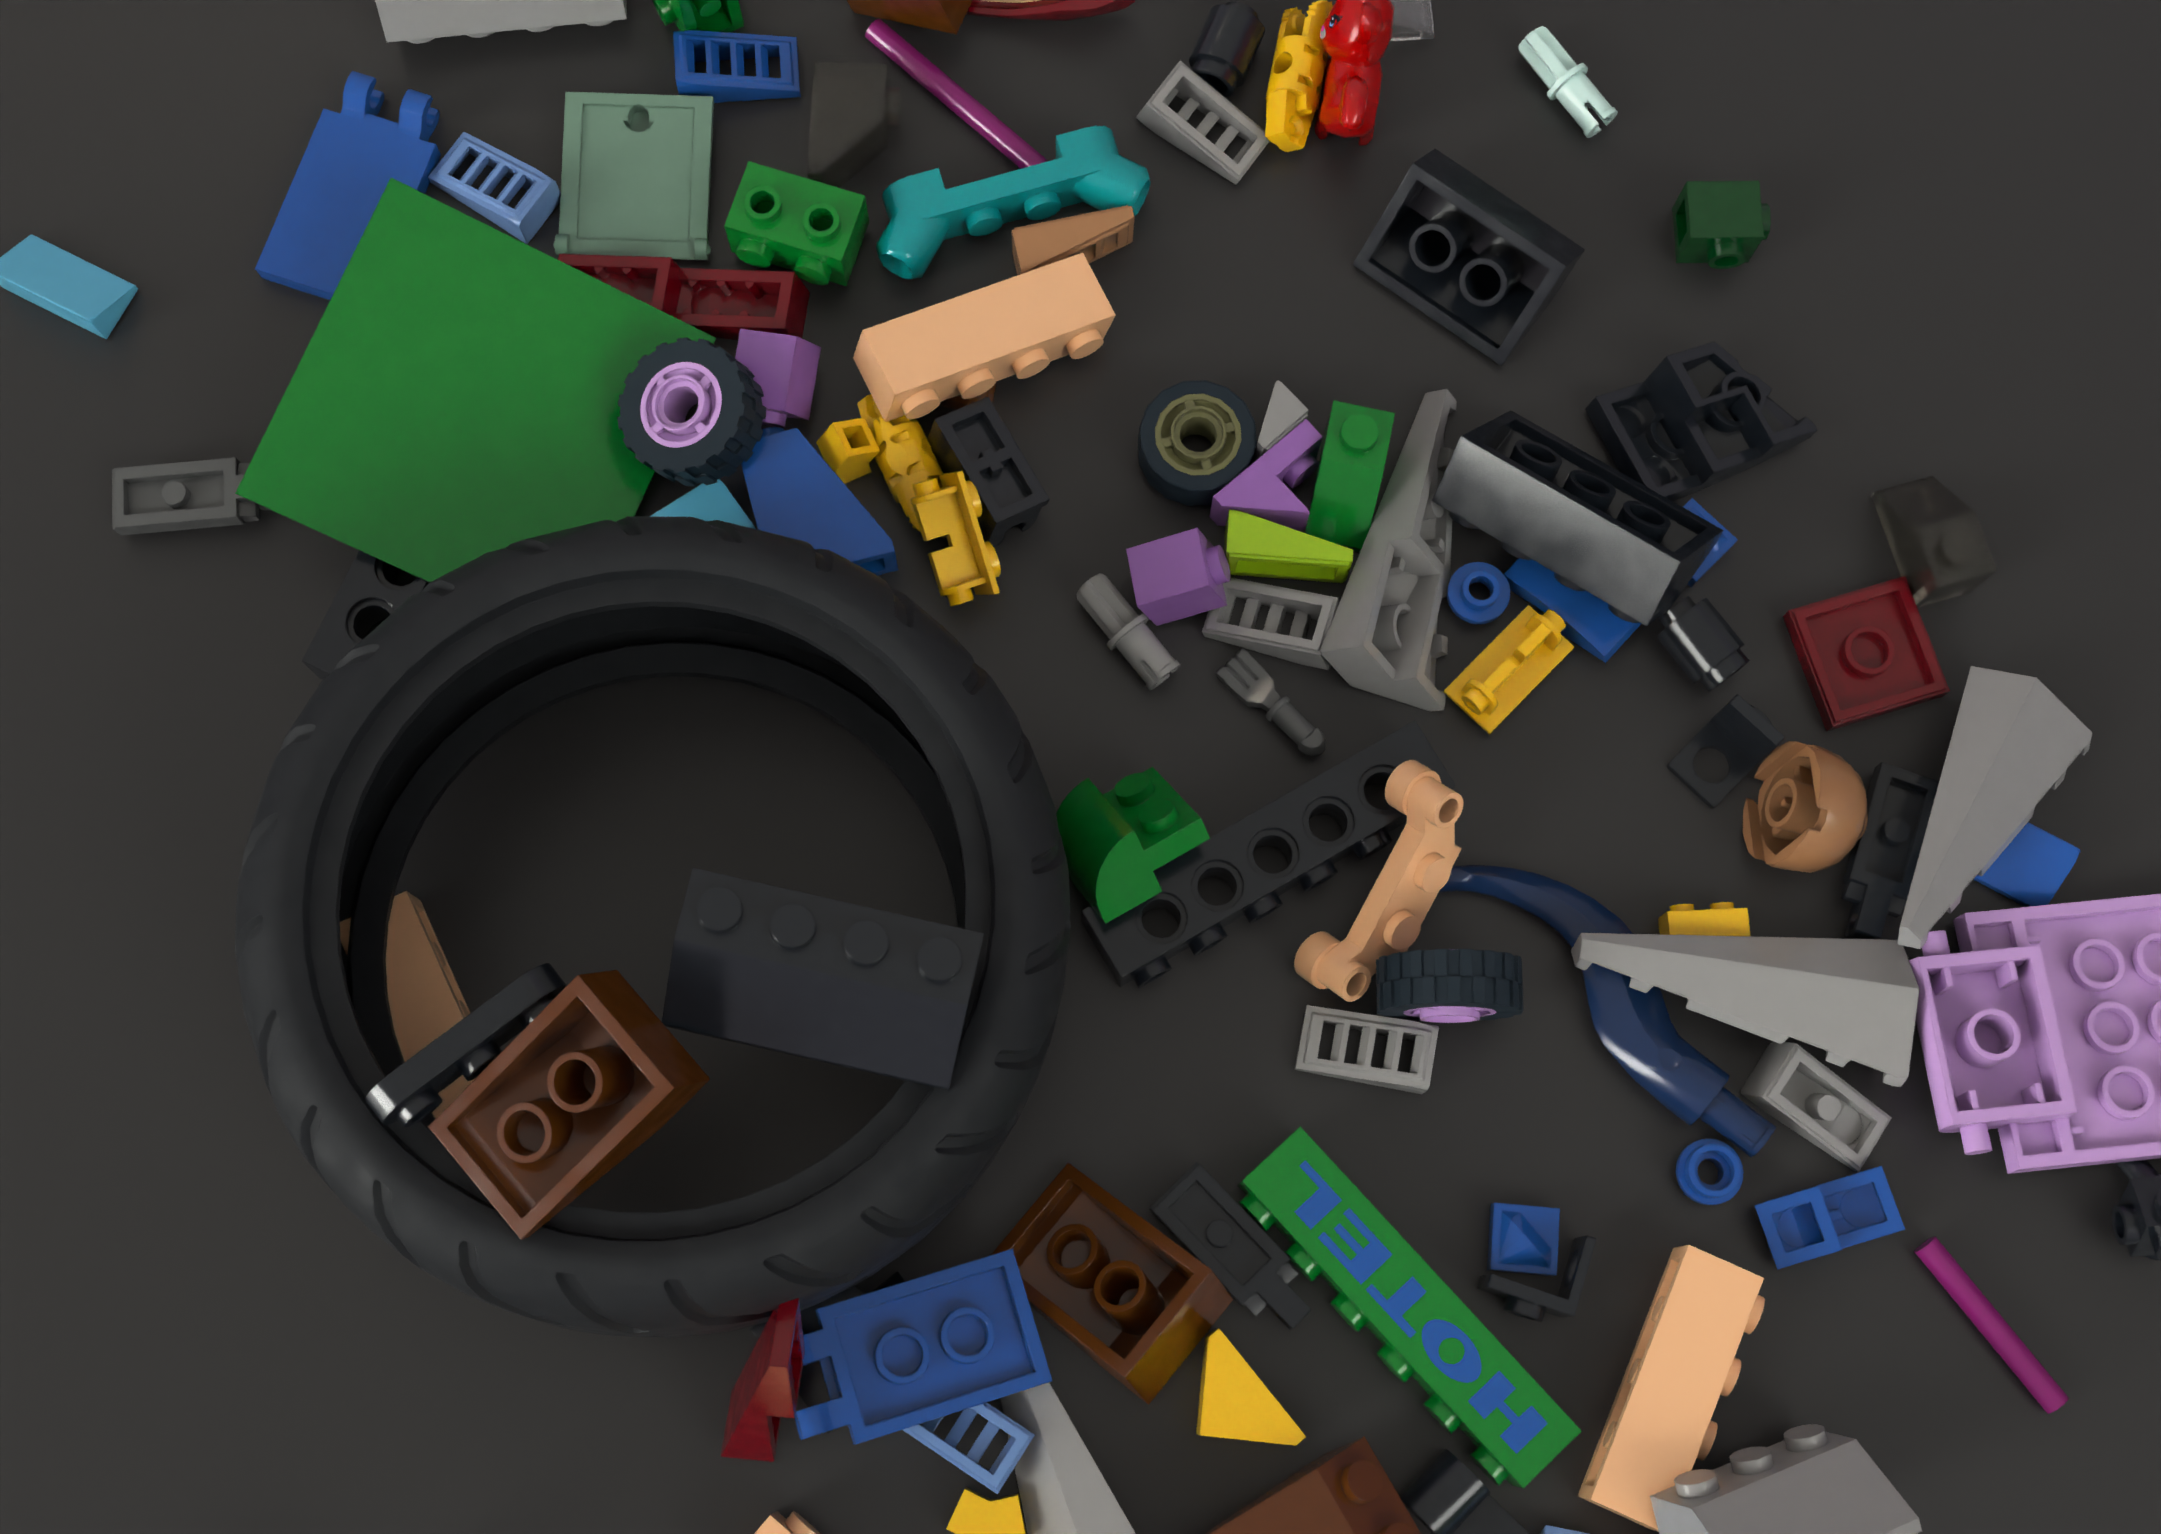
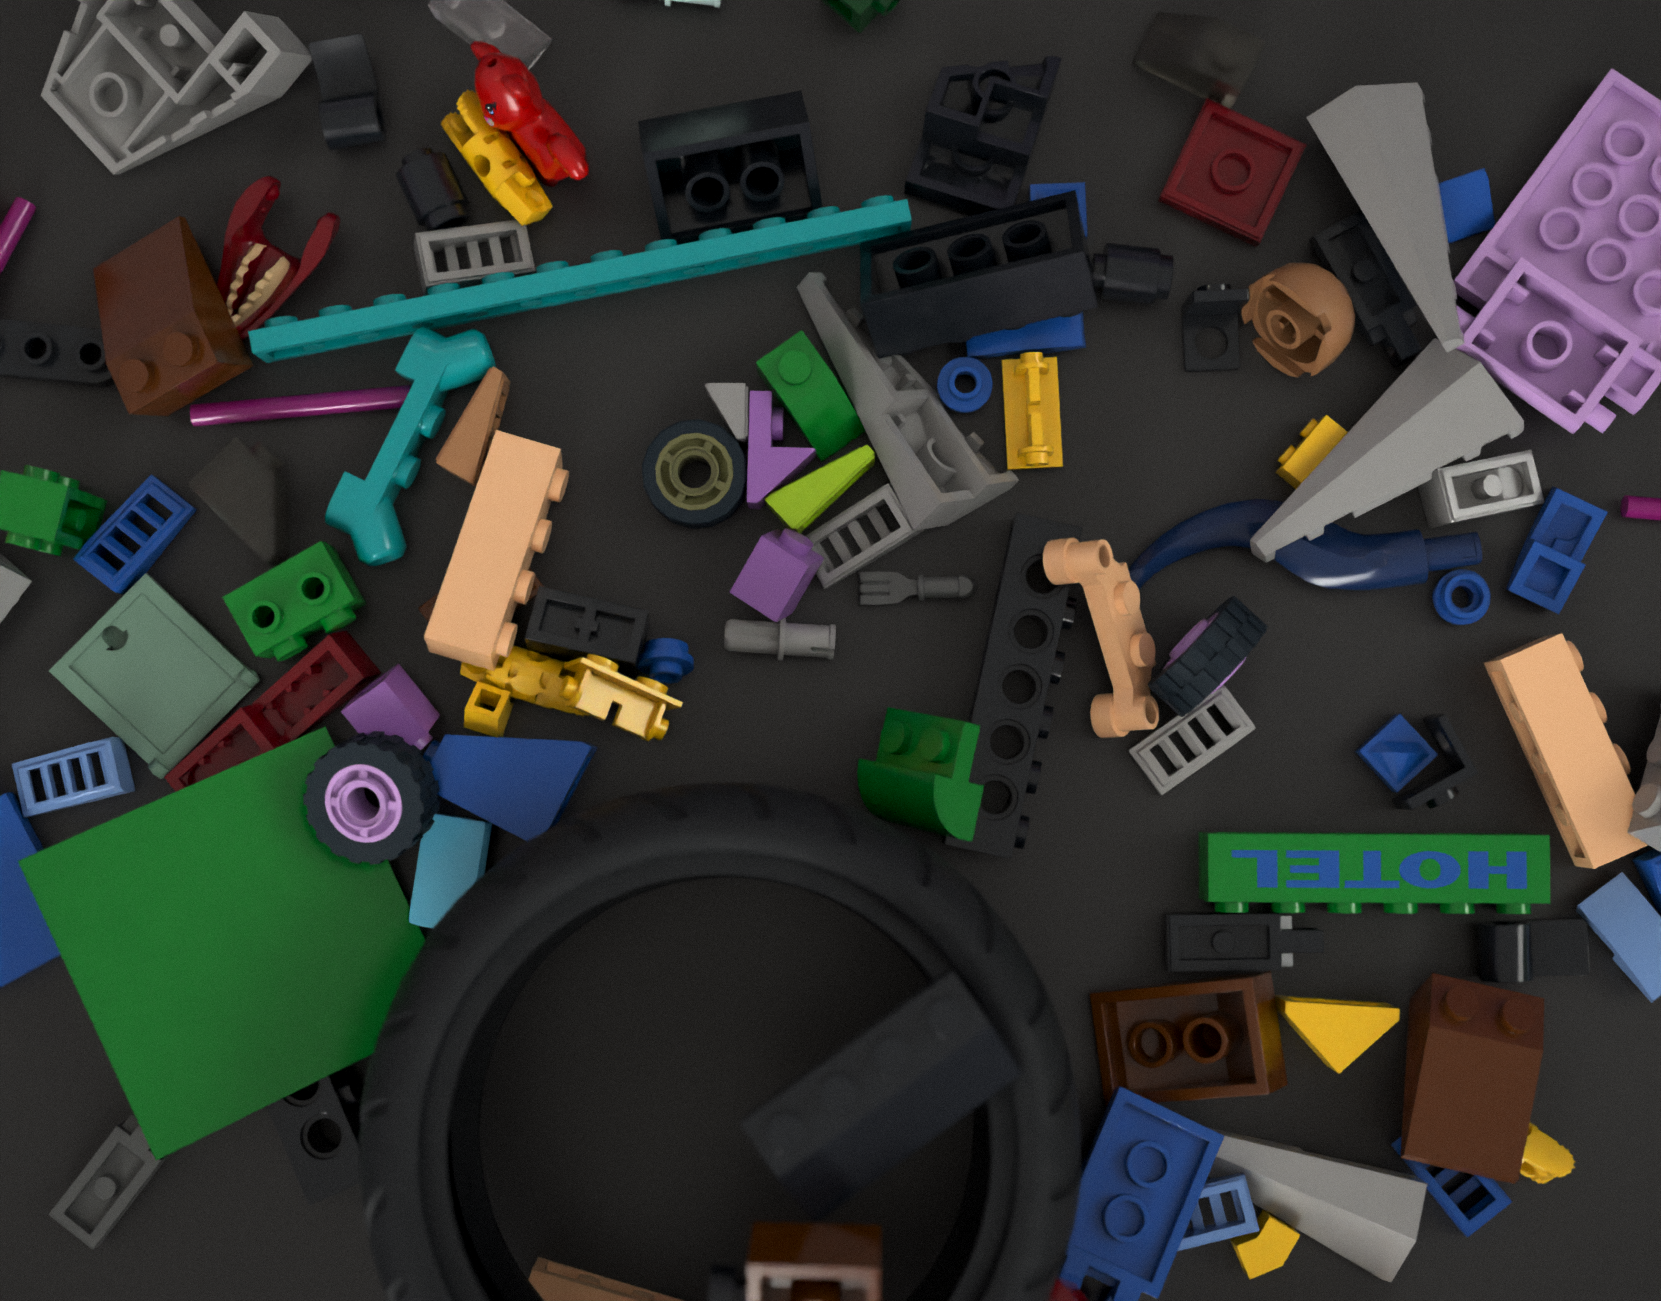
camera: 40 degrees left, 10 degrees up
(1022, 554) = (666, 660): none -> blue plate
(1283, 231) = (560, 284): none -> teal plate

